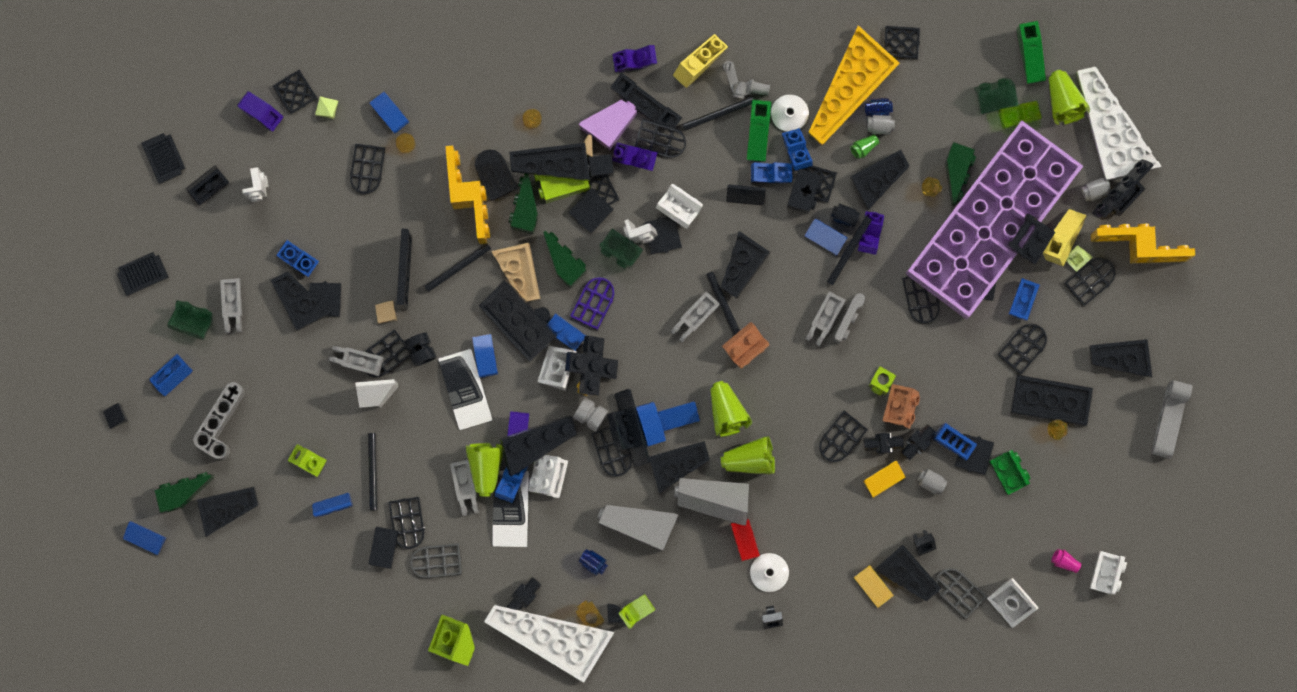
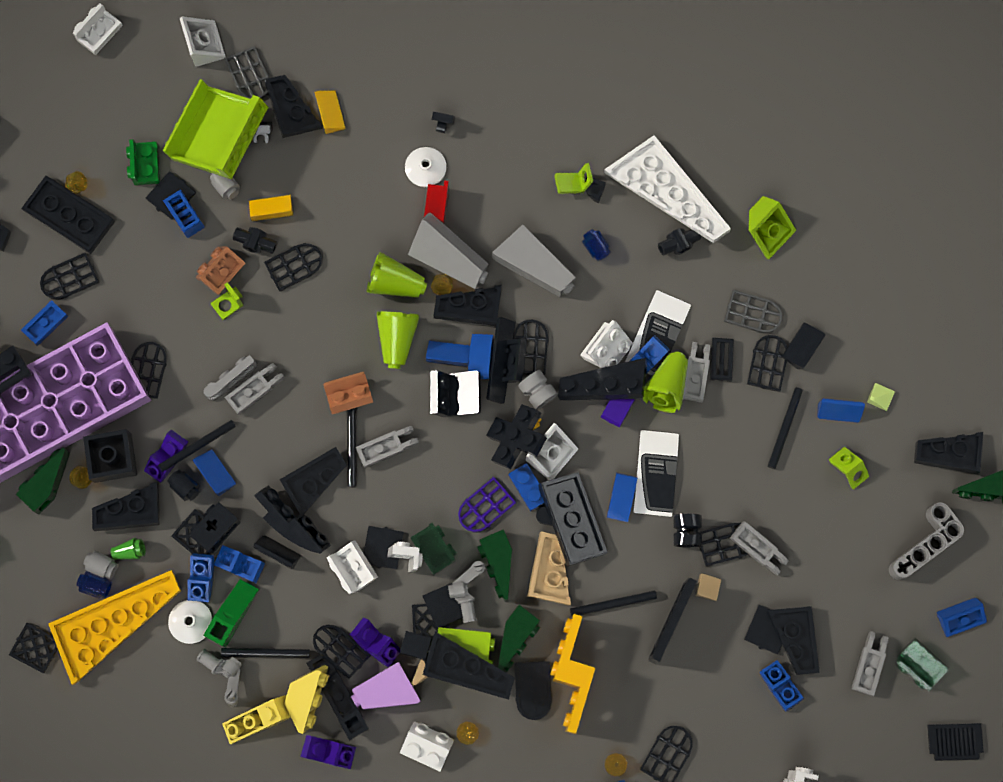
camera: 160 degrees left, 5 degrees down
(302, 532) = (880, 396): none -> yellowish green slope
(375, 392) = (754, 504): white slope -> none
(453, 523) = (721, 376): none -> black tile
(559, 95) = (427, 746): none -> white bracket
(584, 223) = (460, 591): none -> light grey pin
(584, 609) = (621, 204): clear yellow bracket -> none
(657, 382) = (455, 393): none -> bracket
(670, 90) = (305, 697): none -> light yellow slope
(709, 471) = (442, 284): none -> clear yellow tile
(740, 217) = (297, 529): none -> black slope
(914, 212) = (110, 456): none -> black brick
(918, 442) = (219, 227): black axle -> none
(961, 523) = (215, 130): none -> lime panel
(1065, 561) = (134, 60): dark pink cone -> none

